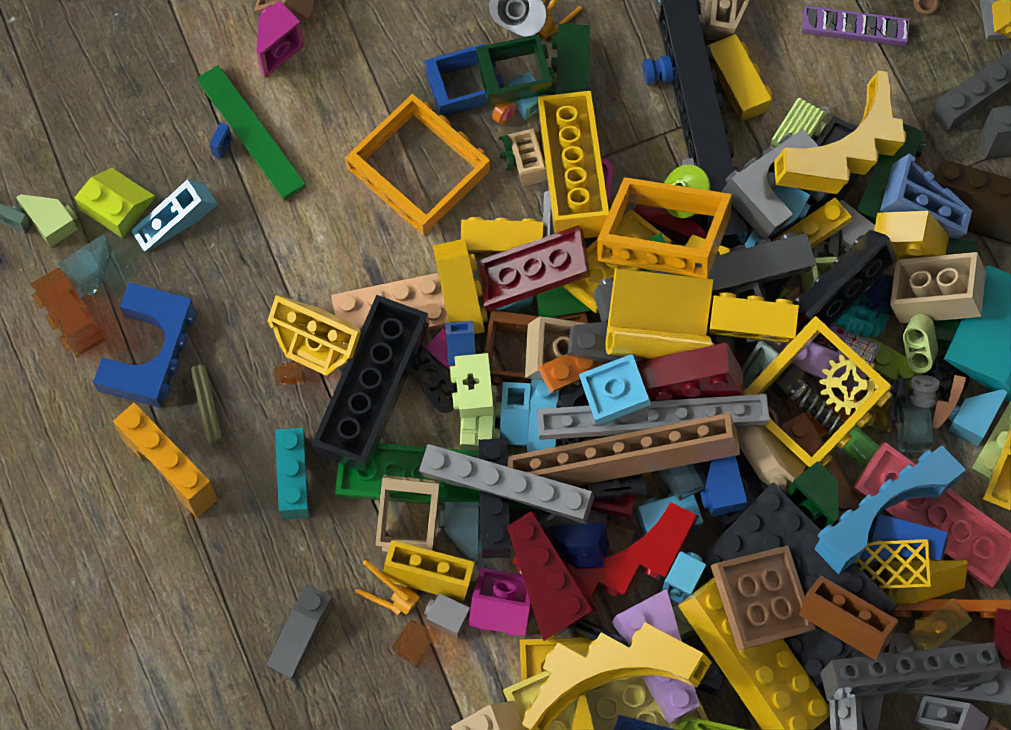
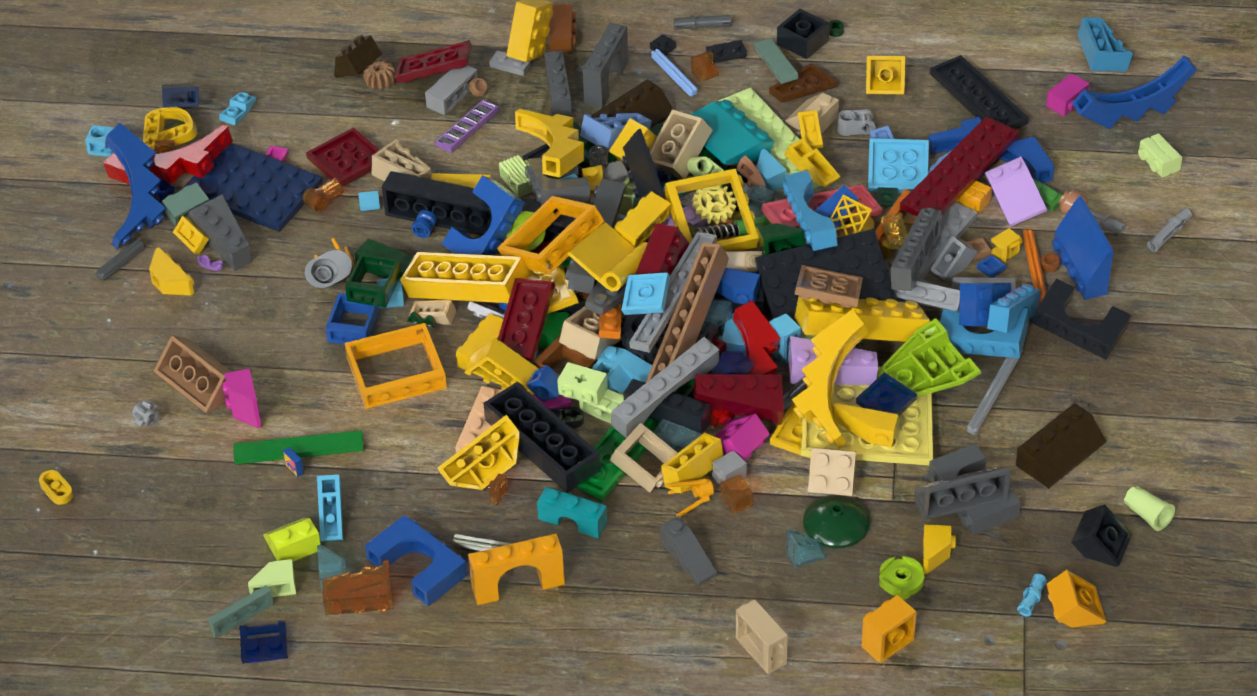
camera: 60 degrees left, 25 degrees down
(504, 112) = (392, 309): orange tile -> none
(688, 152) = (504, 210): none -> blue arch
(848, 617) = (869, 249): dark orange brick -> none
(862, 200) = (598, 156): none -> clear smoke wheel

